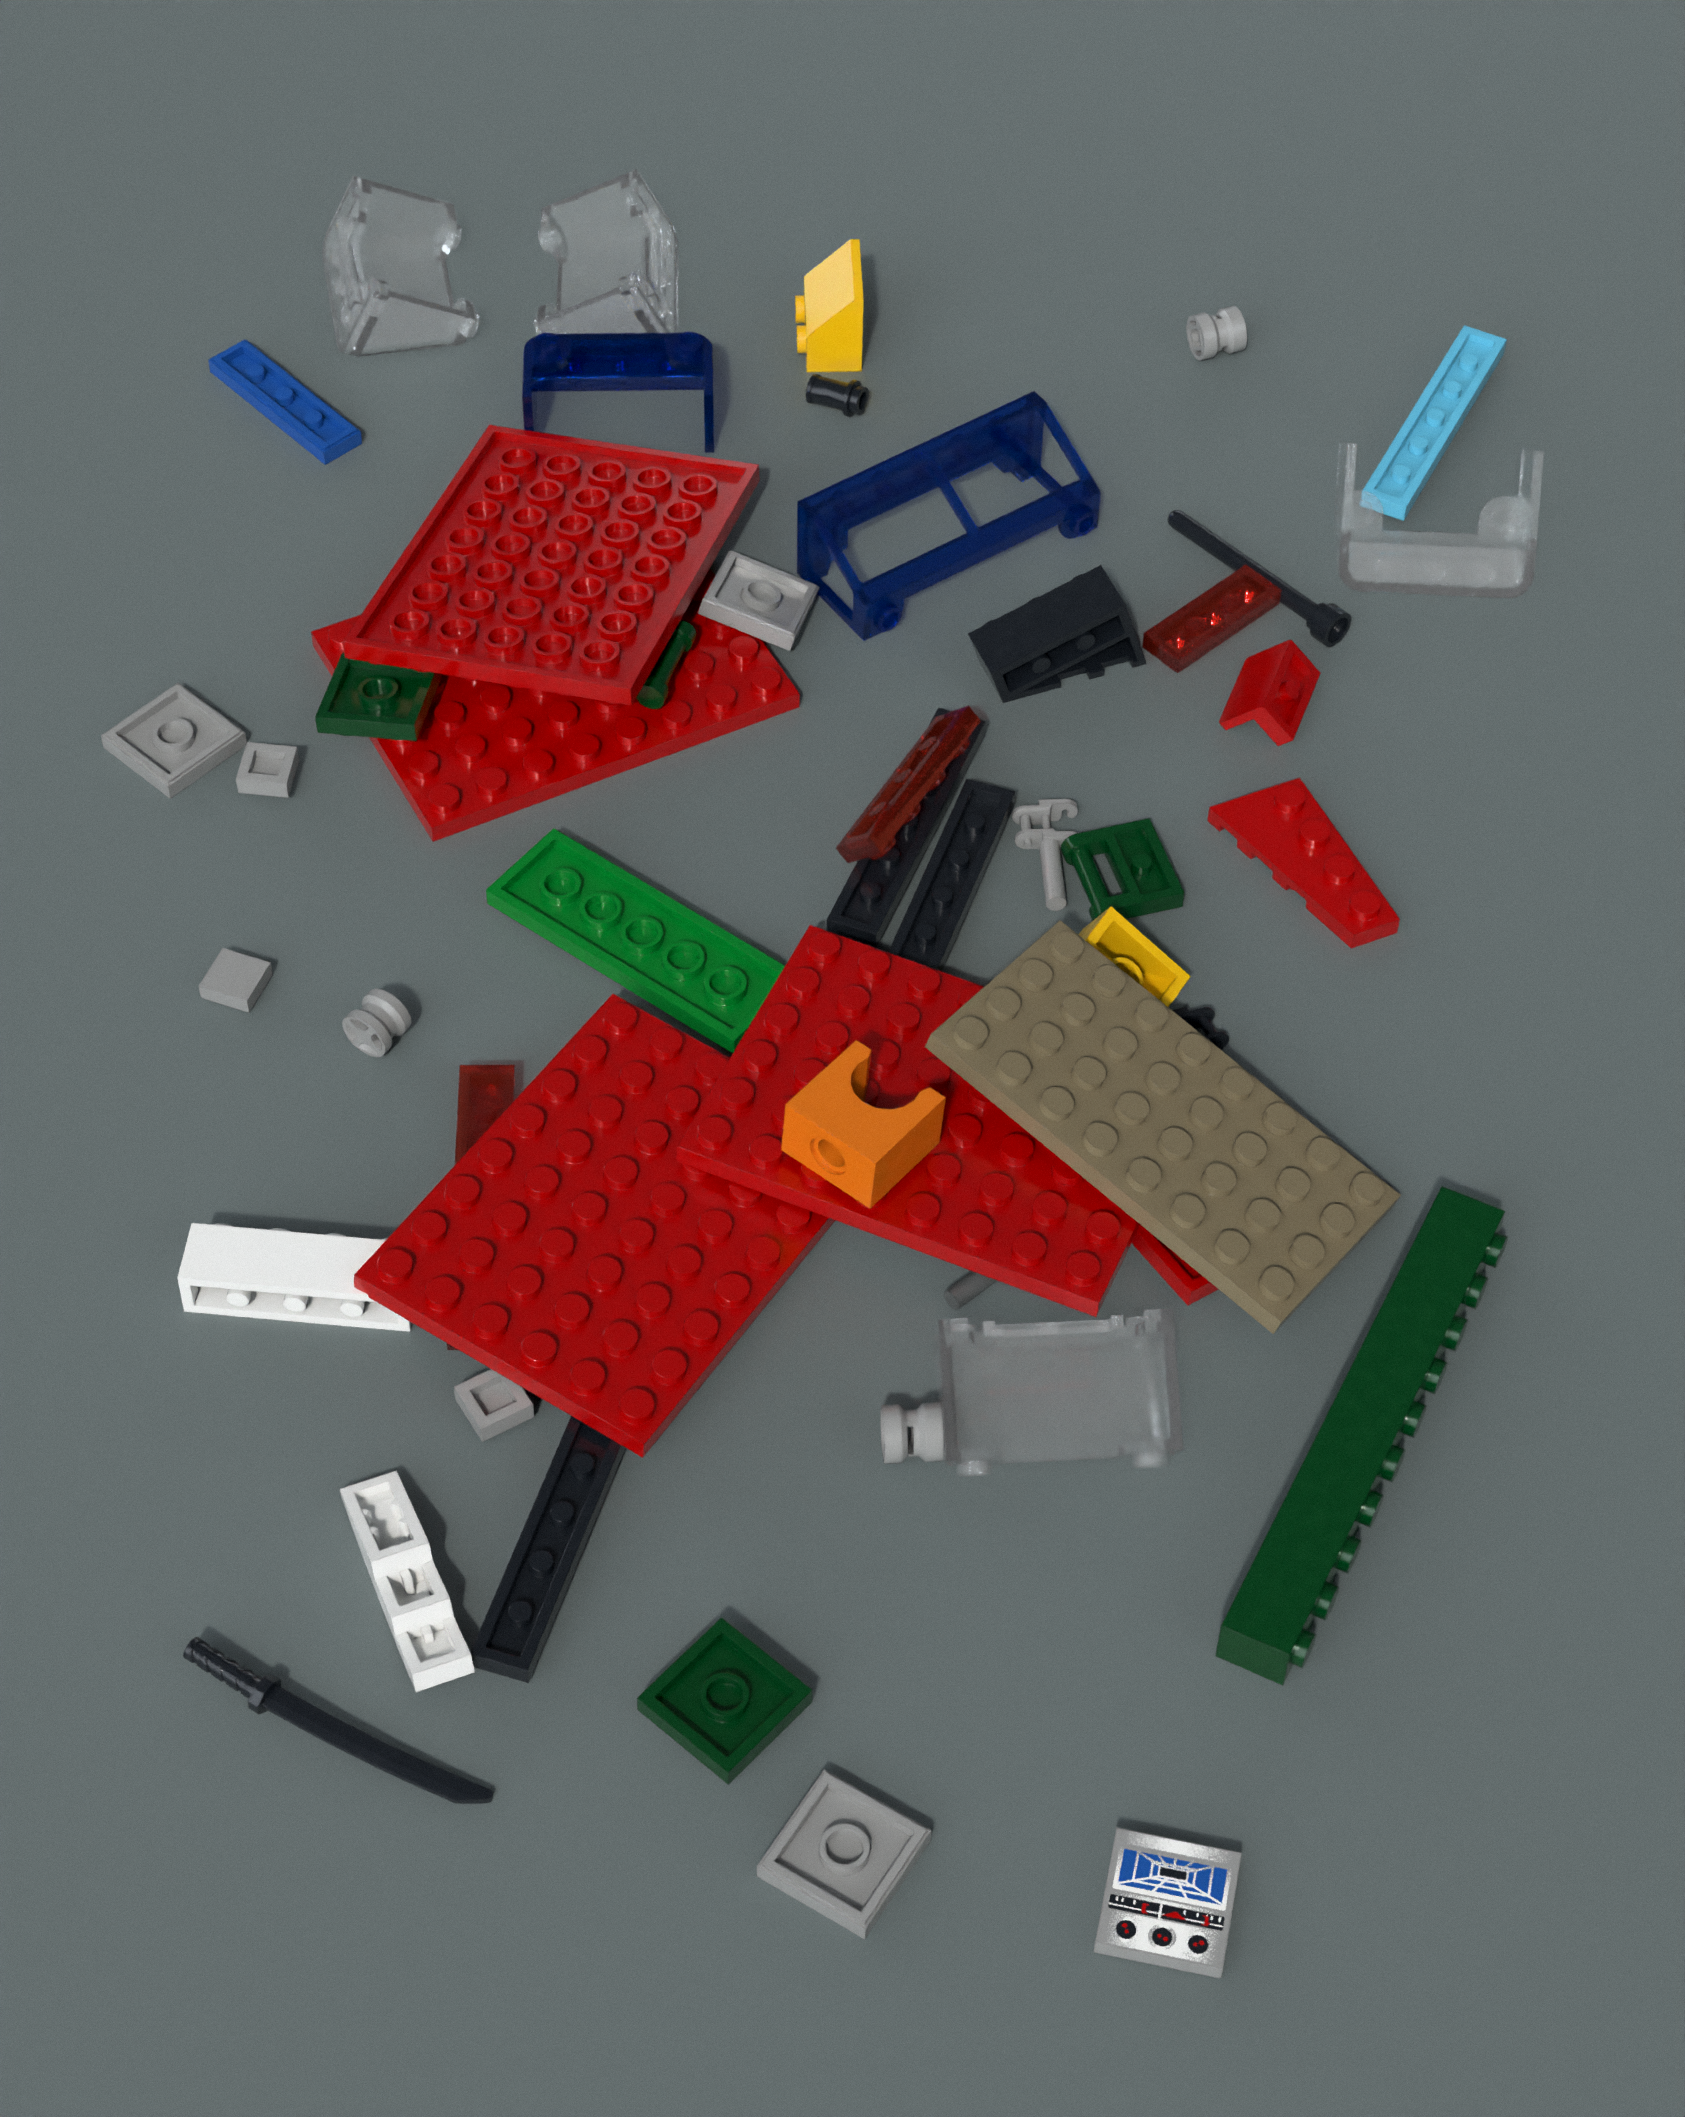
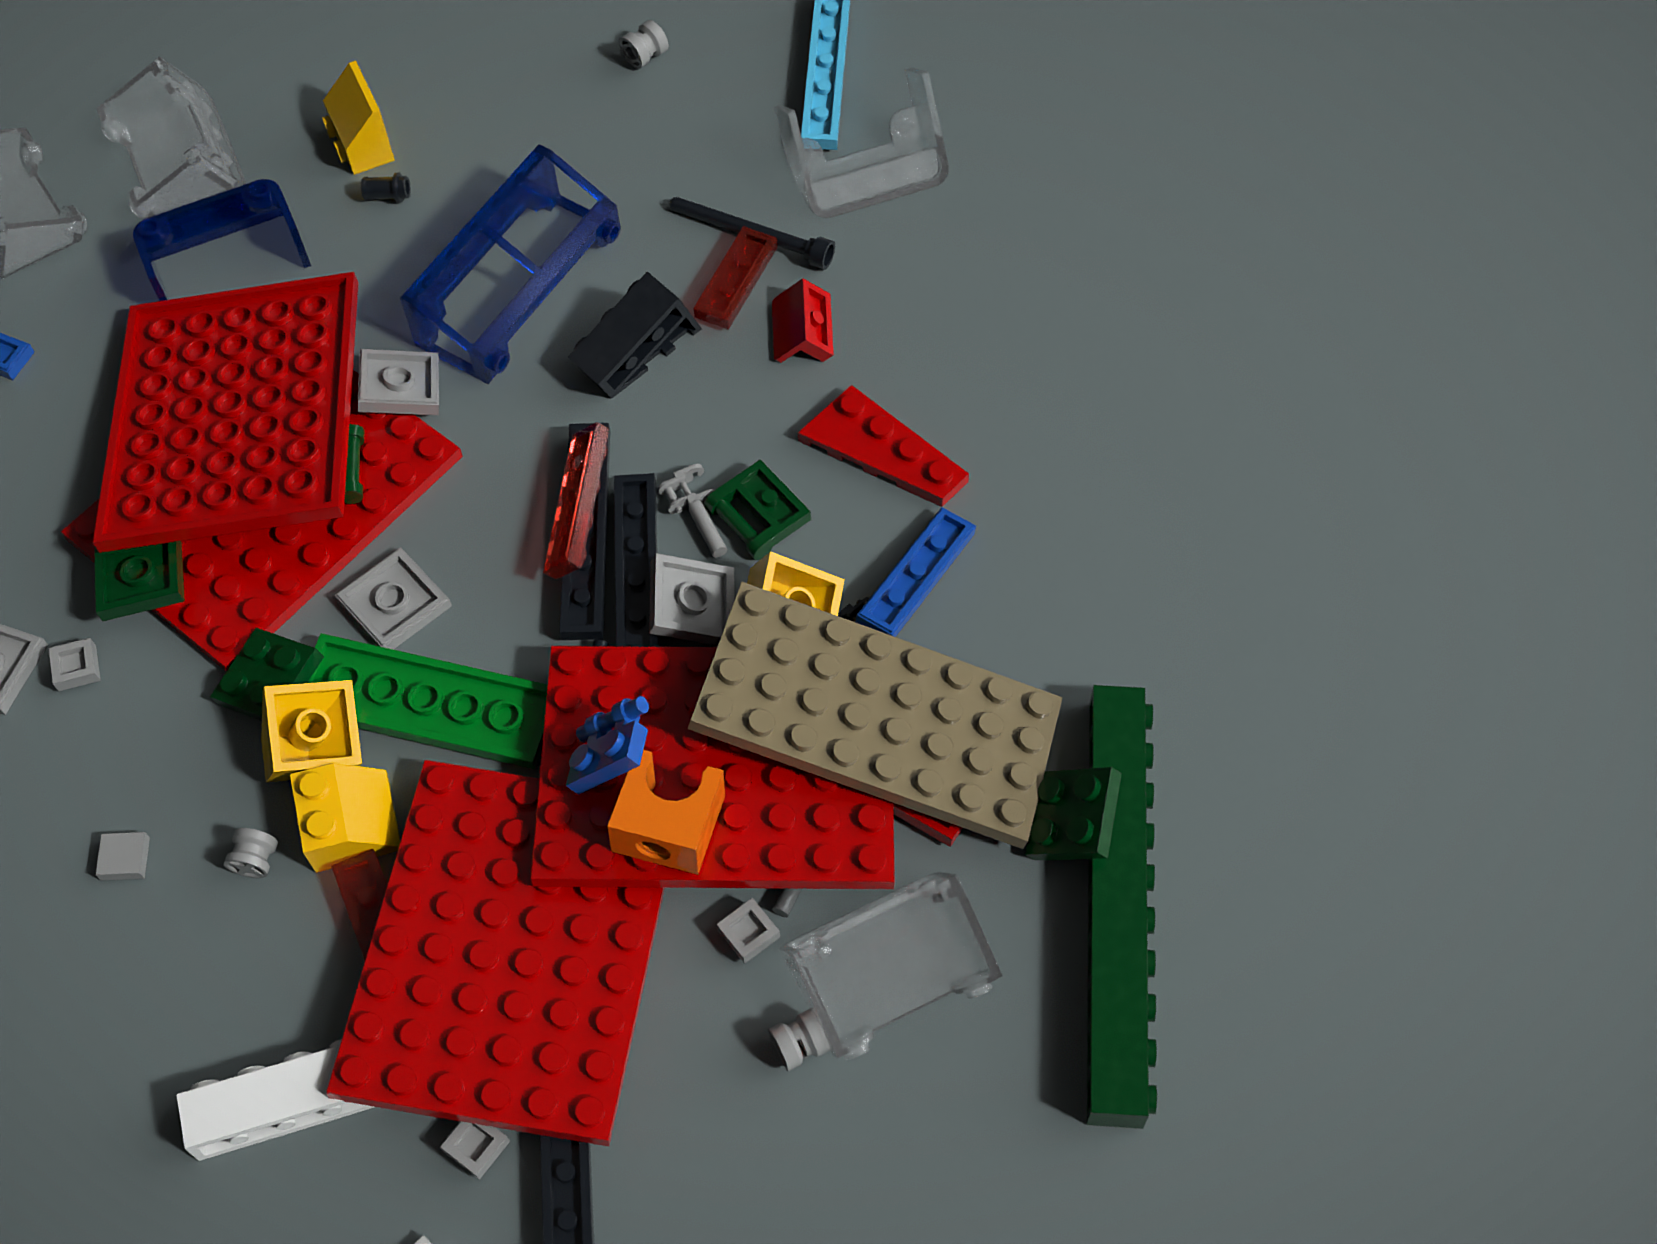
camera: 20 degrees left, 10 degrees up
(473, 852) = (263, 662): none -> dark green plate
(496, 917) = (308, 727): none -> yellow slope
(497, 1016) = (344, 813): none -> yellow slope
(651, 826) = (393, 600): none -> light grey tile
(825, 1030) = (612, 747): none -> blue plate
(904, 1302) = (748, 930): none -> light grey plate
(989, 928) = (689, 598): none -> light grey plate
(1286, 1001) = (916, 573): none -> blue tile
(1350, 1313) = (1074, 814): none -> dark green plate

